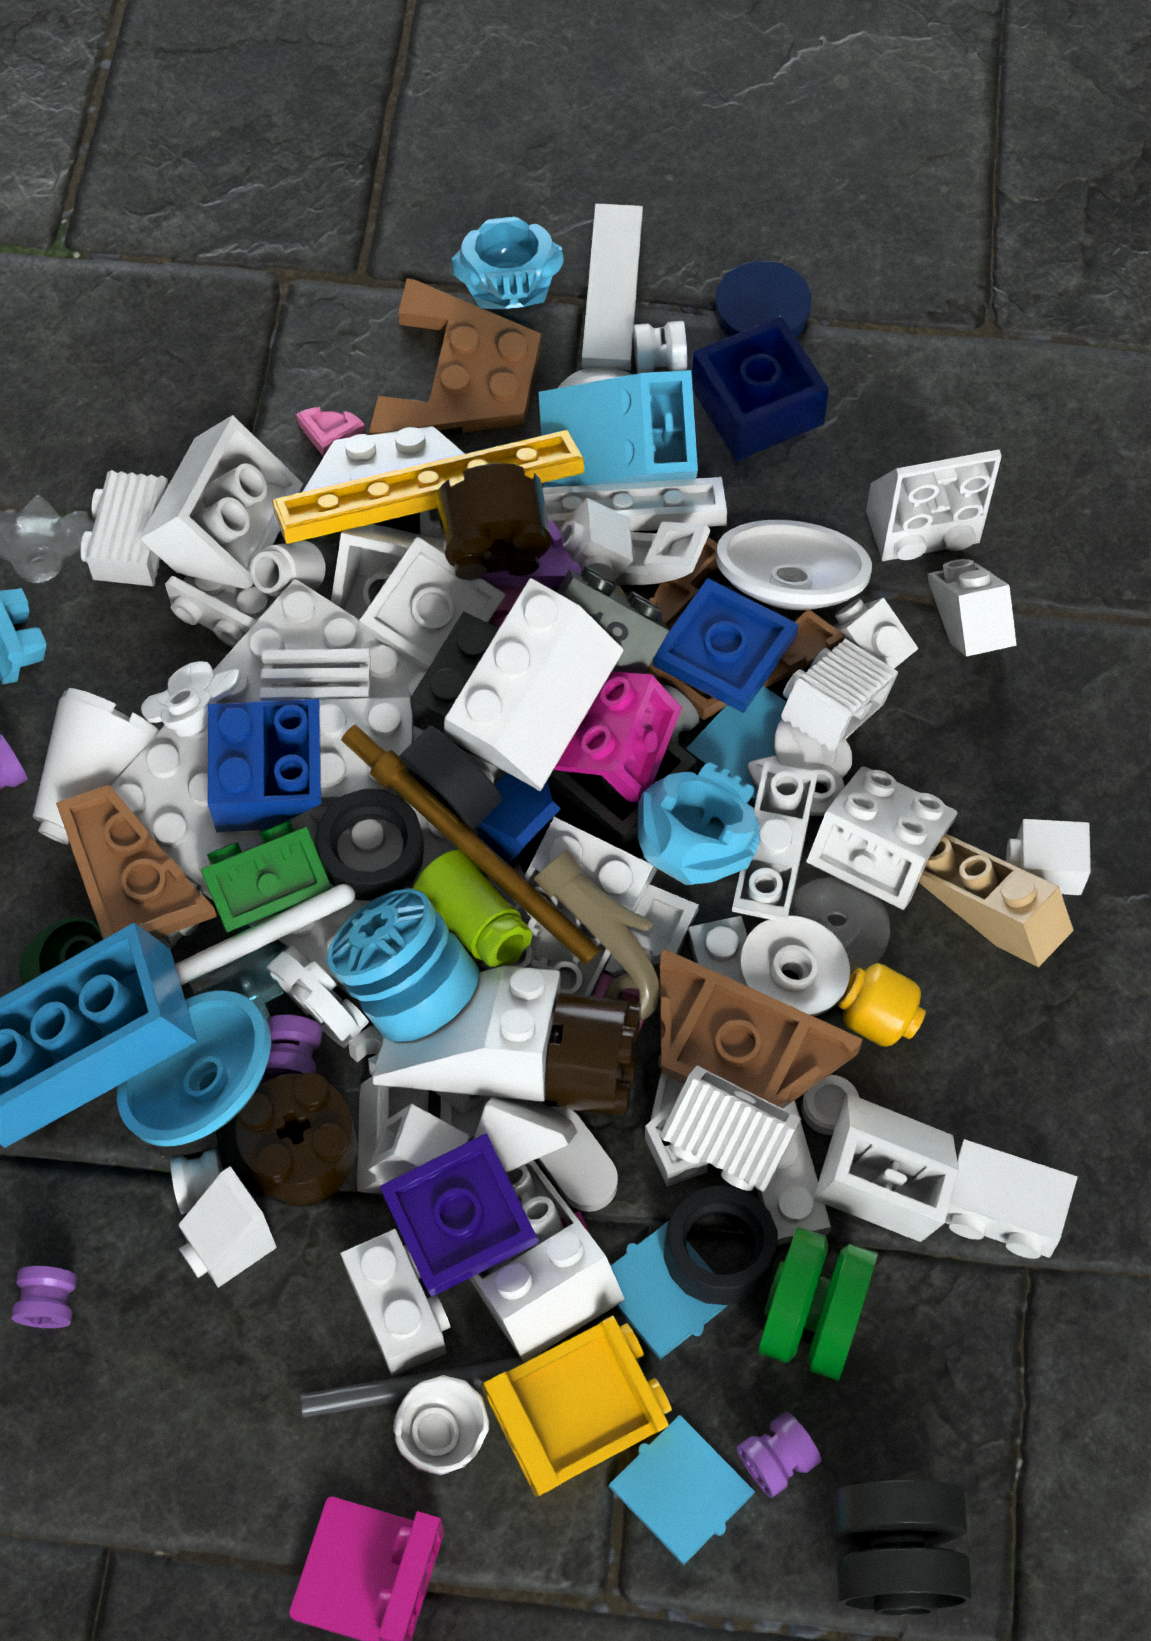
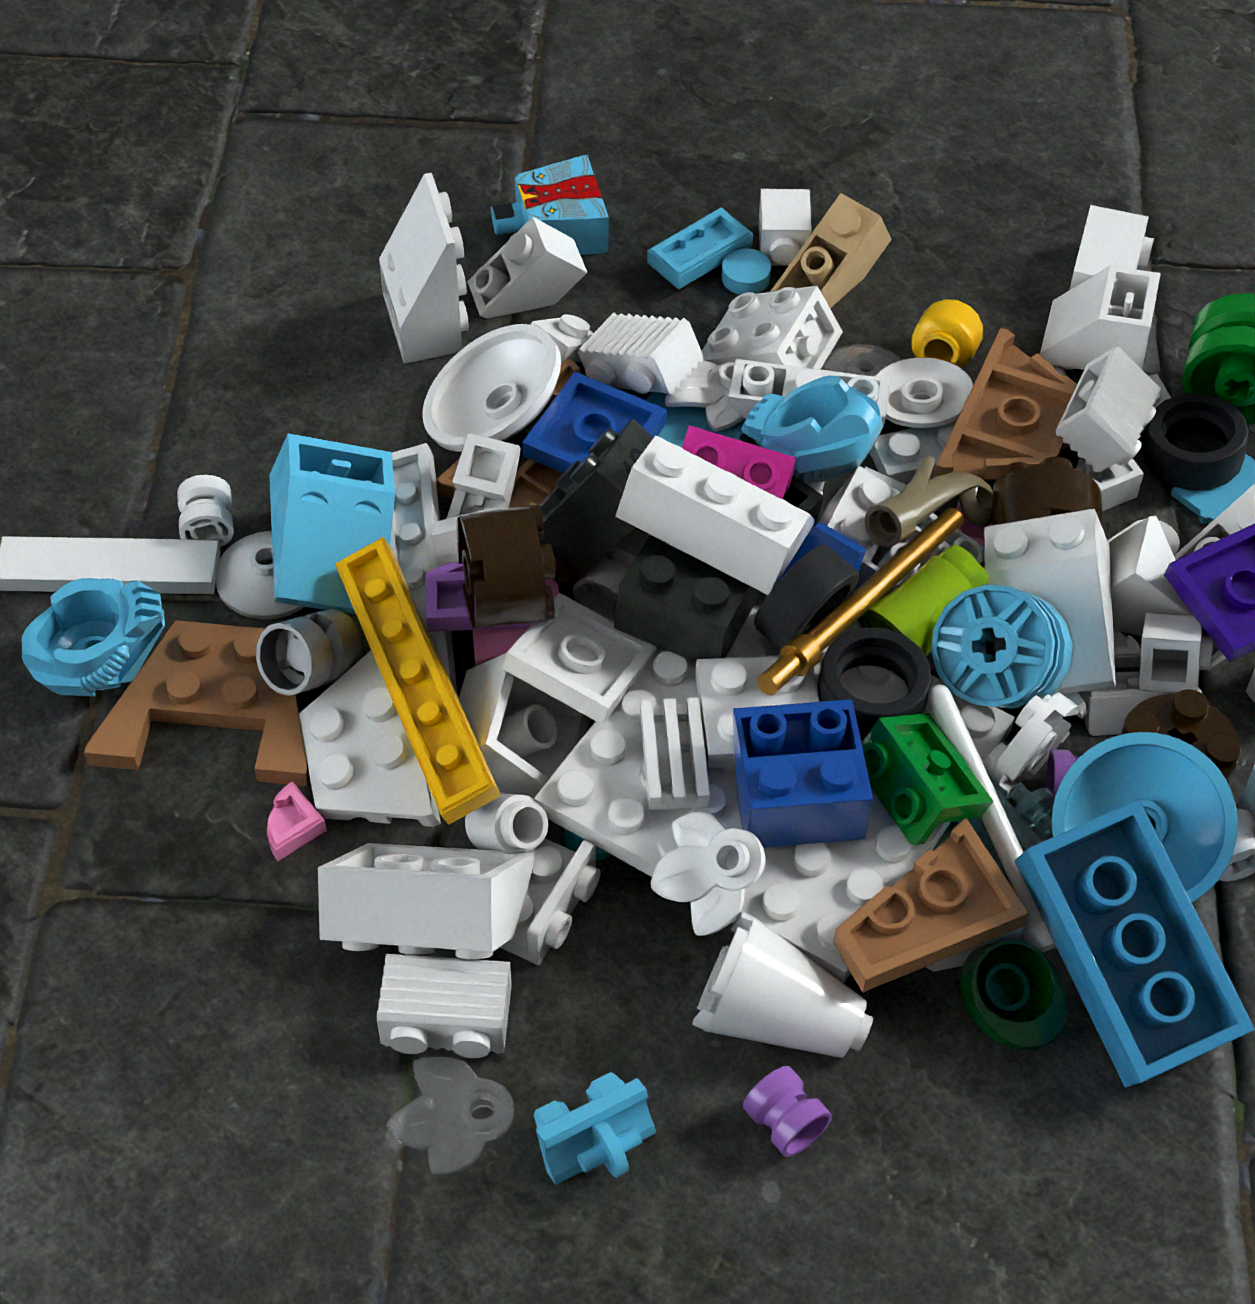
camera: 95 degrees left, 10 degrees down
(477, 416) = (308, 651): none -> flat silver wheel
(759, 388) = (263, 403): clear blue brick -> none
(760, 293) = (144, 437): dark blue tile -> none
(993, 821) = (746, 271): none -> medium azure tile
(1022, 773) = (698, 248): none -> medium azure plate
(1072, 638) = (563, 198): none -> torso

